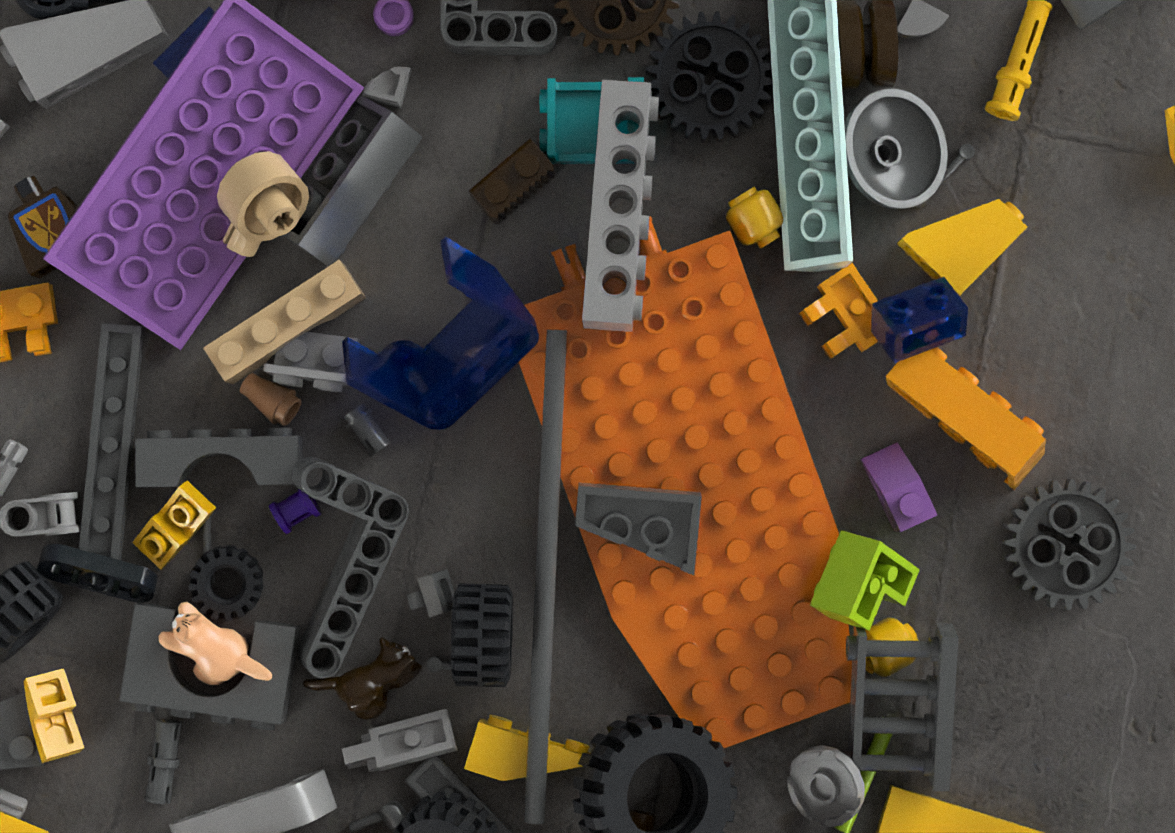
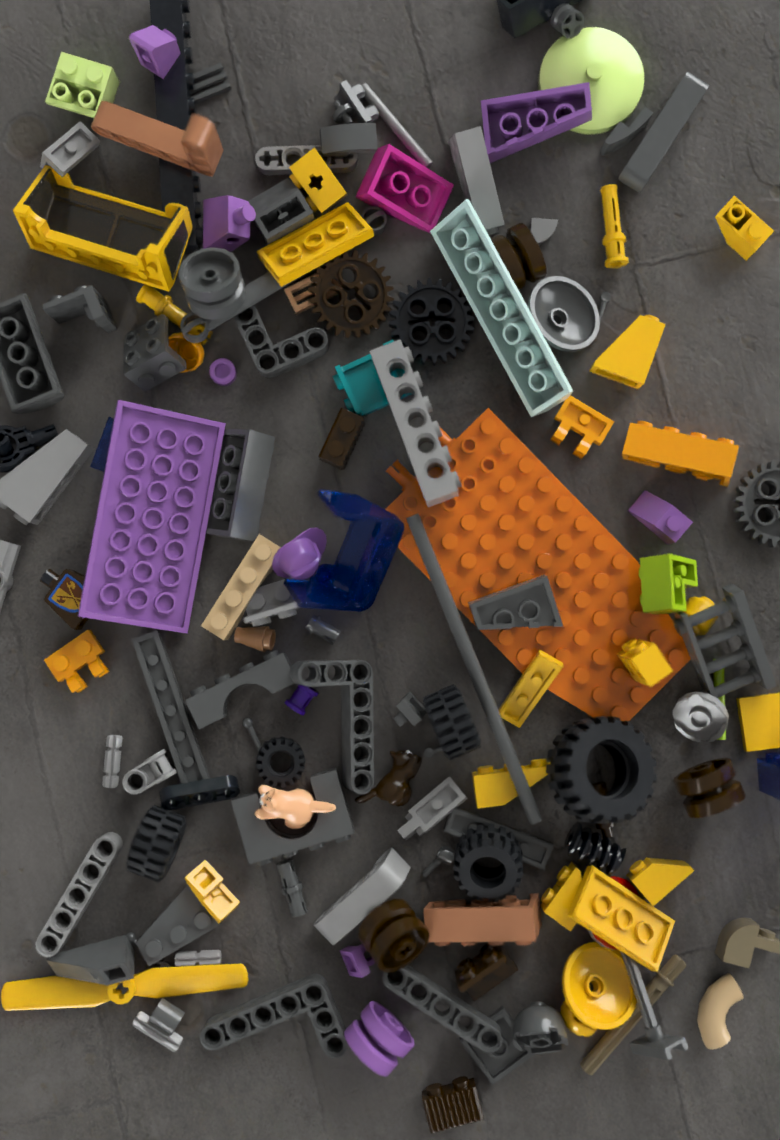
camera: 25 degrees left, 0 degrees up
(174, 525) = (232, 741): yellow slope -> none
(260, 200) = (195, 519): tan piece -> none
(383, 314) = (301, 555): none -> medium lavender piece
(388, 86) = (240, 416): light grey tile -> none
(610, 639) = (530, 688): none -> yellow tile
(755, 217) = (498, 393): yellow head -> none
(780, 672) = (644, 661): none -> yellow brick
(919, 319) = (627, 409): clear blue brick -> none

